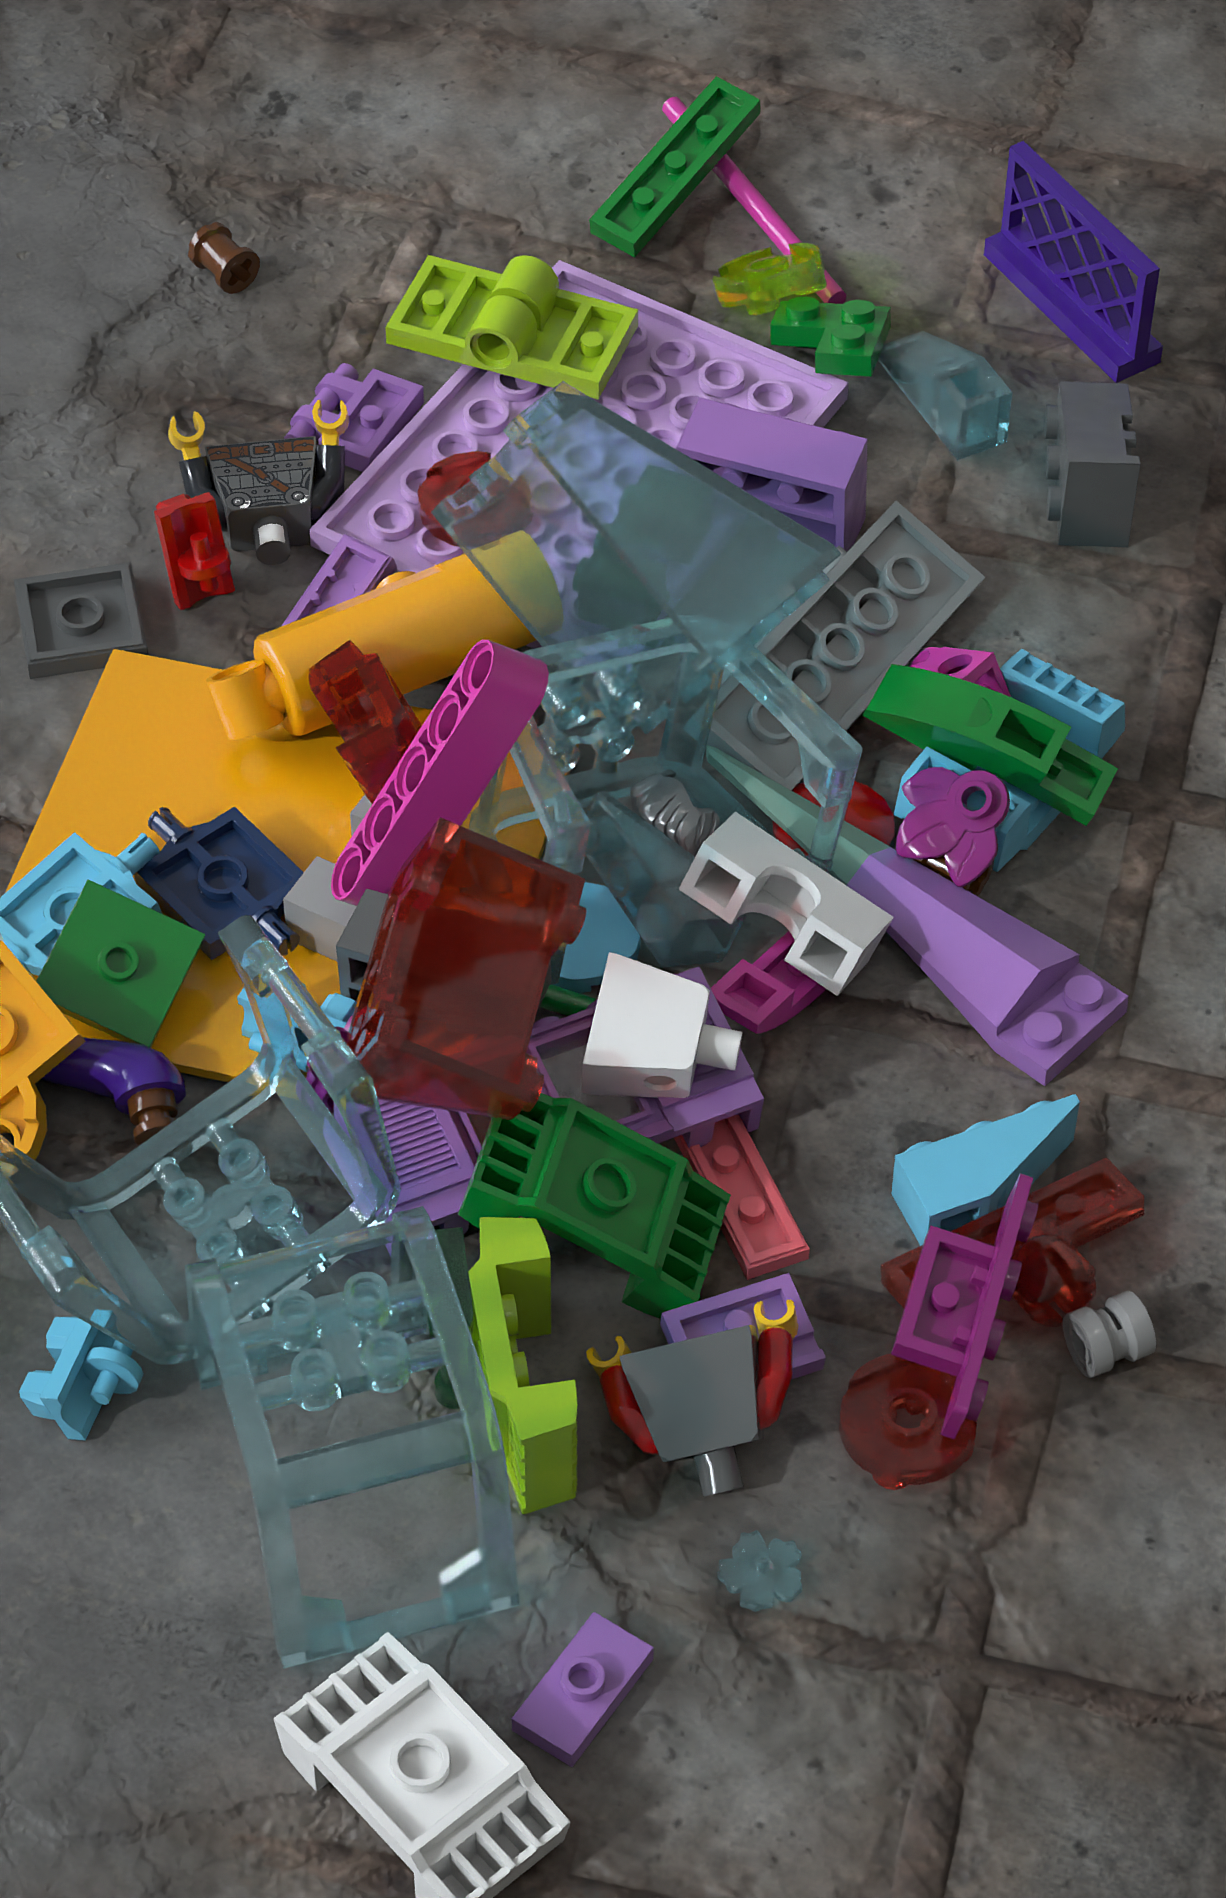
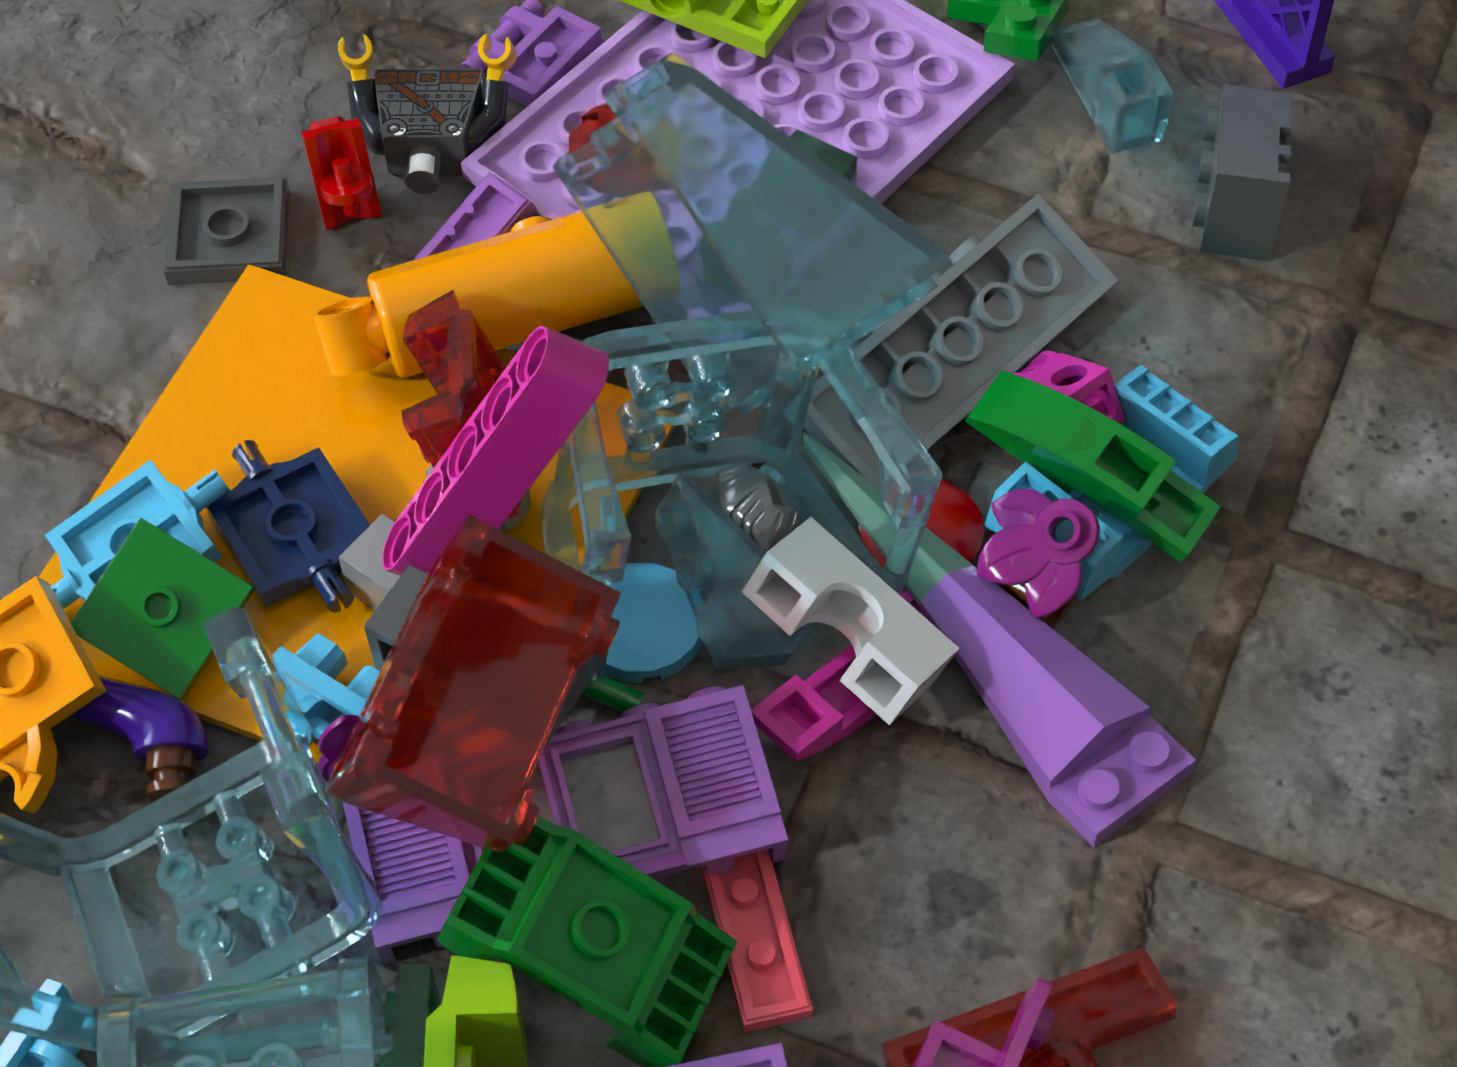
camera: 10 degrees right, 5 degrees up
(651, 1034) = (675, 760): white torso -> none
(788, 464) = (925, 149): medium lavender wedge -> none
(976, 1170) = (1008, 945): medium azure slope -> none

